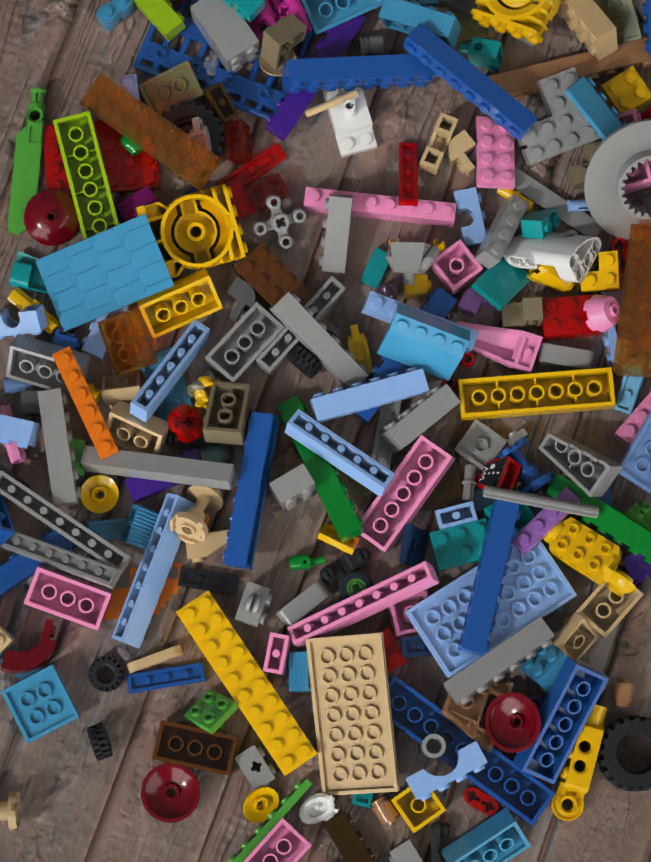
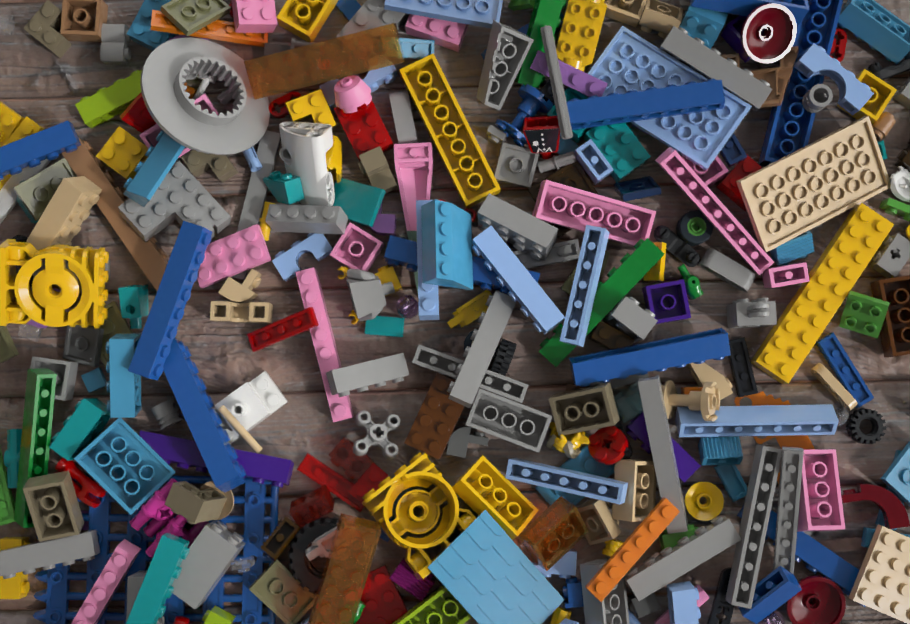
camera: 110 degrees left, 5 degrees up
(295, 531) = (667, 301): none -> dark purple brick

